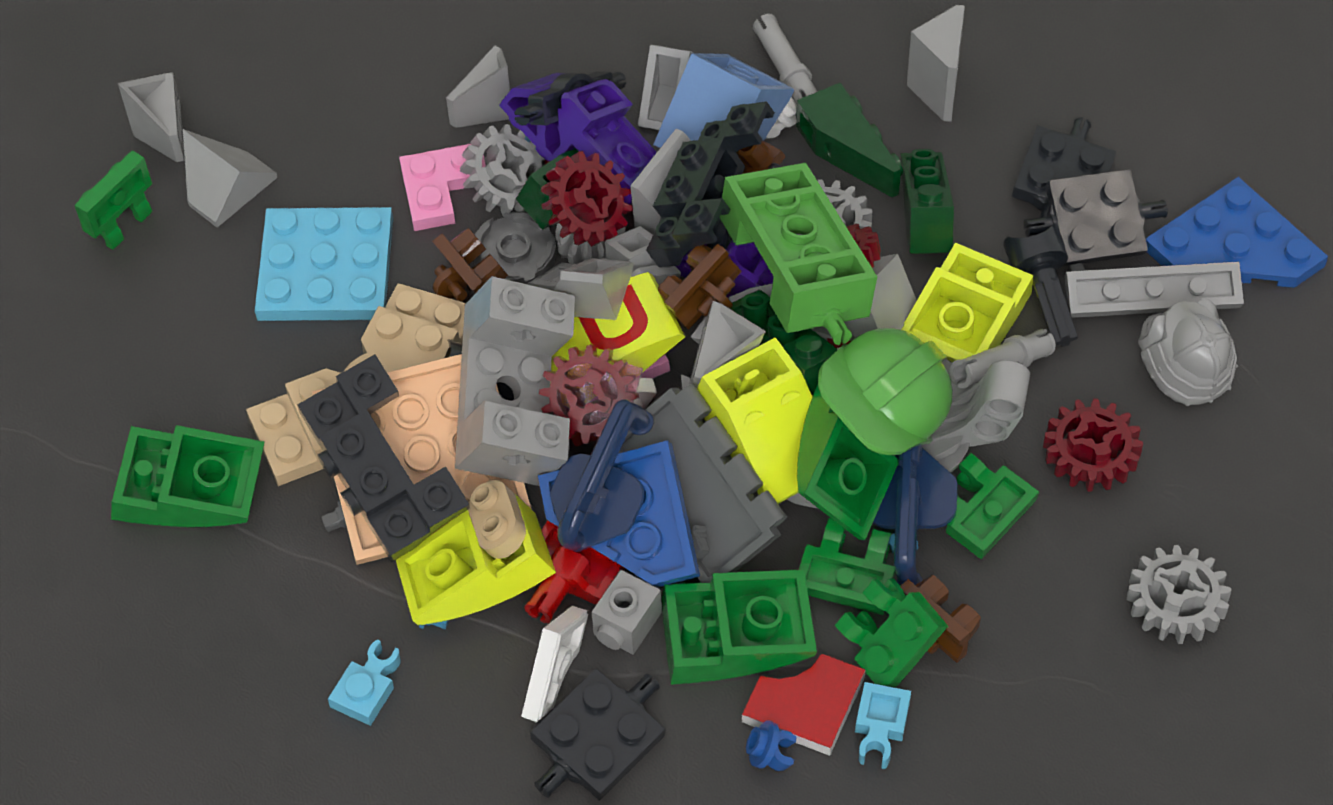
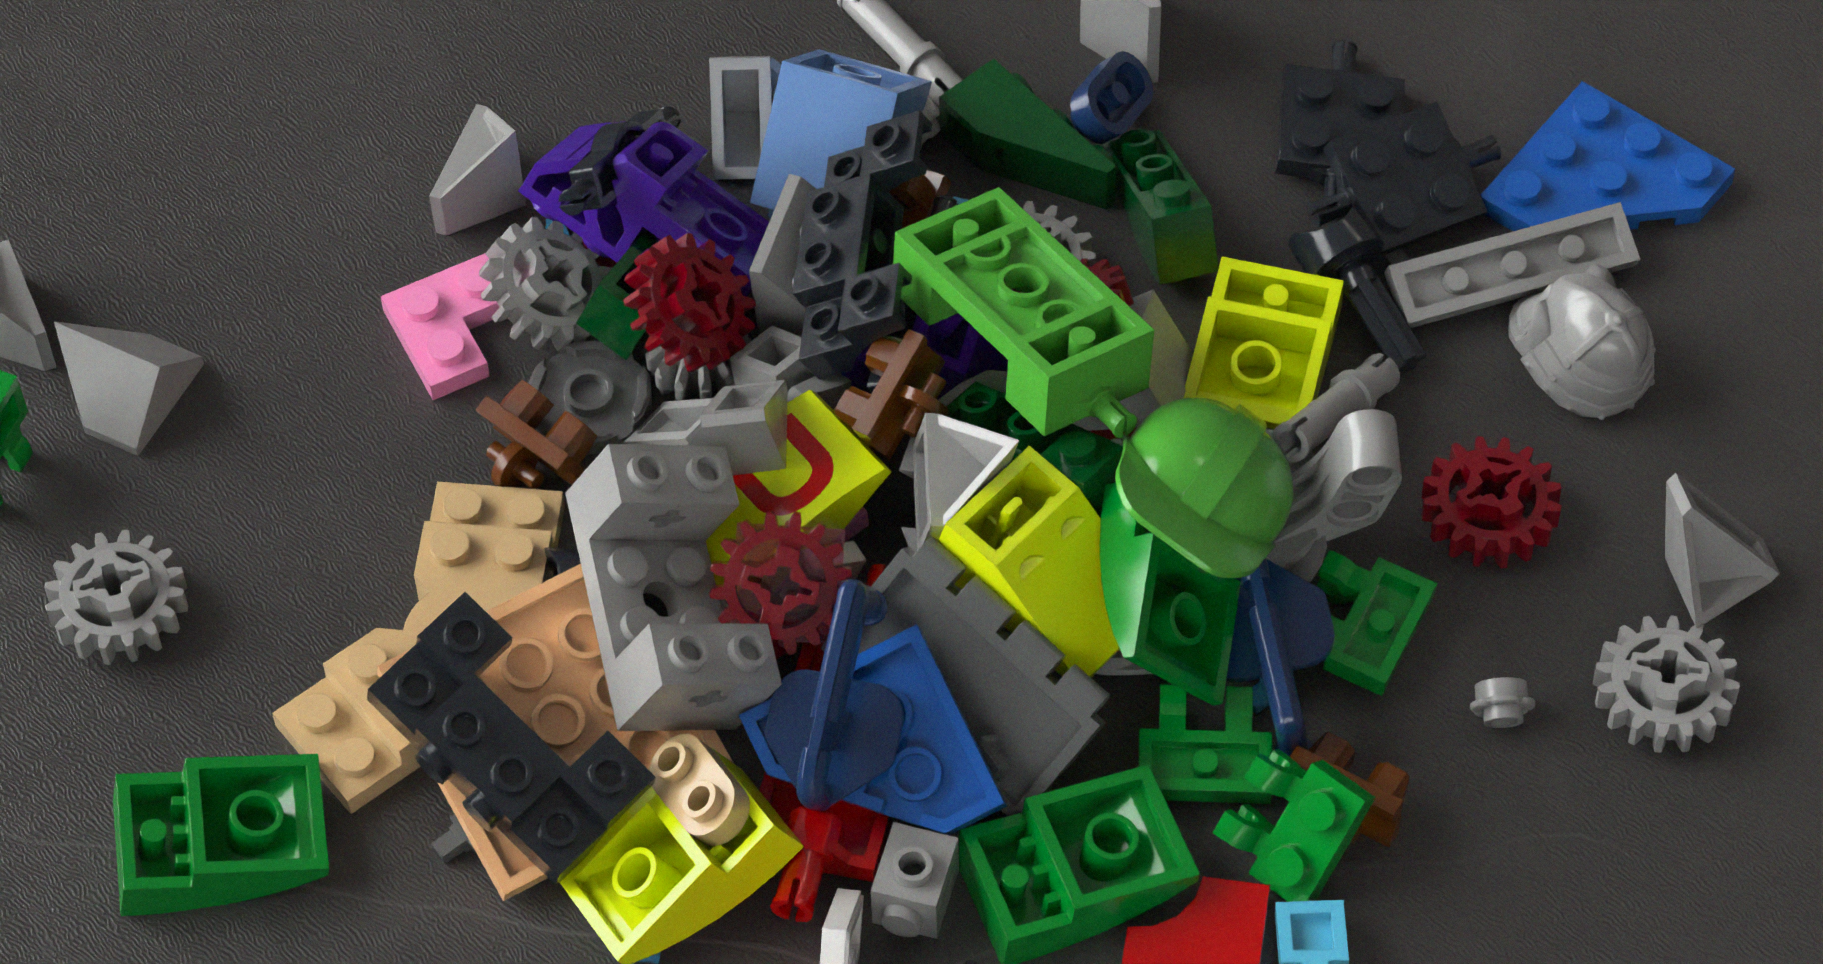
camera: 15 degrees left, 0 degrees up
(170, 313) = (116, 597): none -> light grey gear
(324, 263) = (317, 476): medium azure plate -> none
(913, 124) = (1111, 98): none -> dark blue plate
(1061, 581) = (1502, 701): none -> light grey plate
(1236, 512) = (1711, 553): none -> light grey slope

